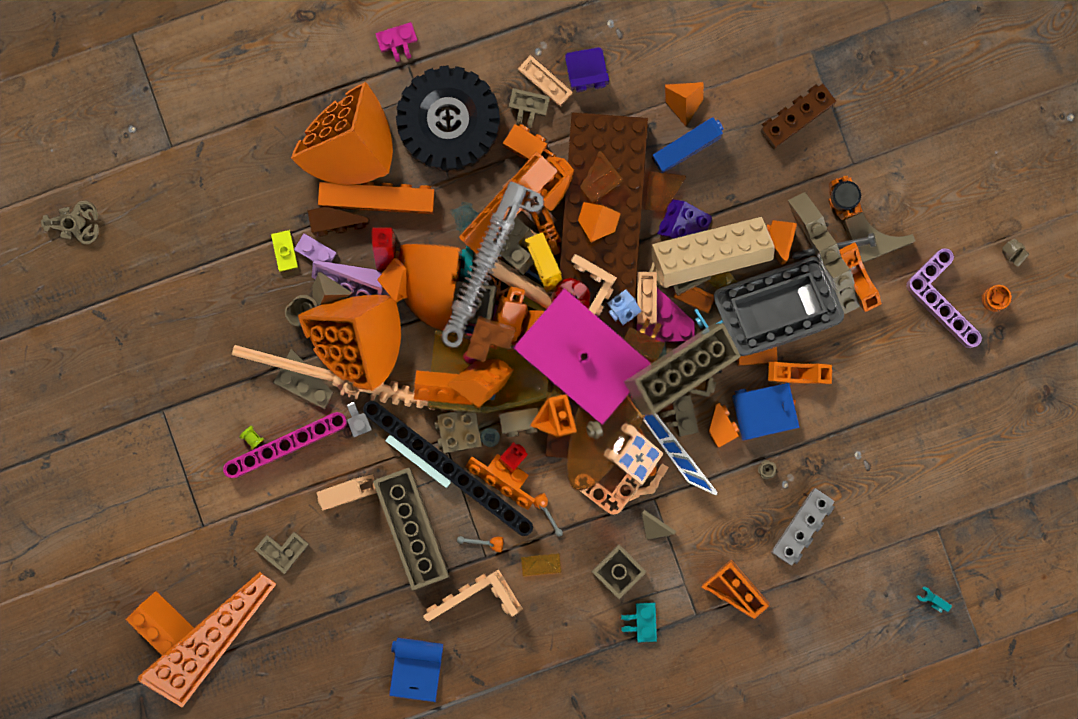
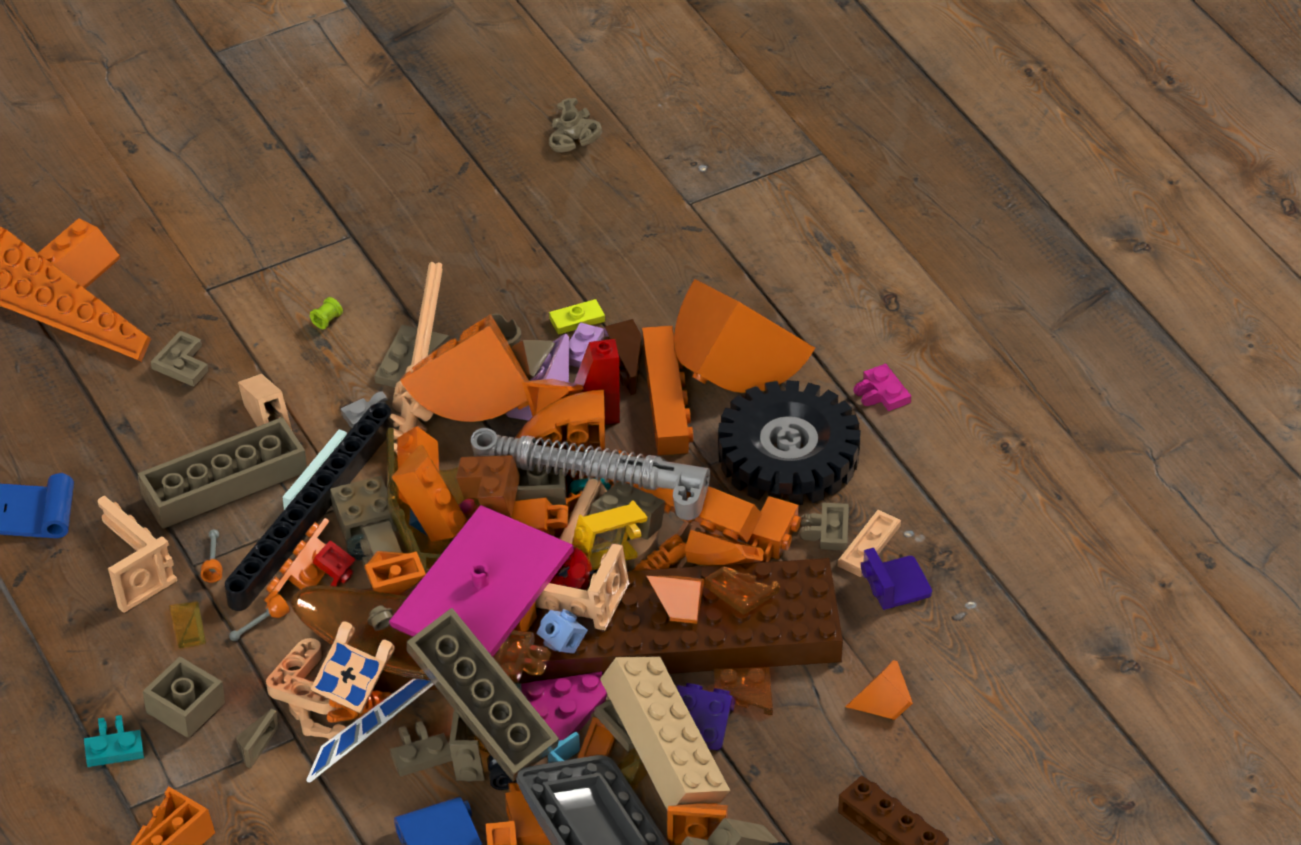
camera: 80 degrees right, 40 degrees down
(275, 445) = (320, 343): dark pink beam -> none
(647, 297) = (574, 676): light nougat hinge -> none
(688, 145) = (818, 699): blue slope -> none
(721, 428) = (411, 791): orange slope -> none

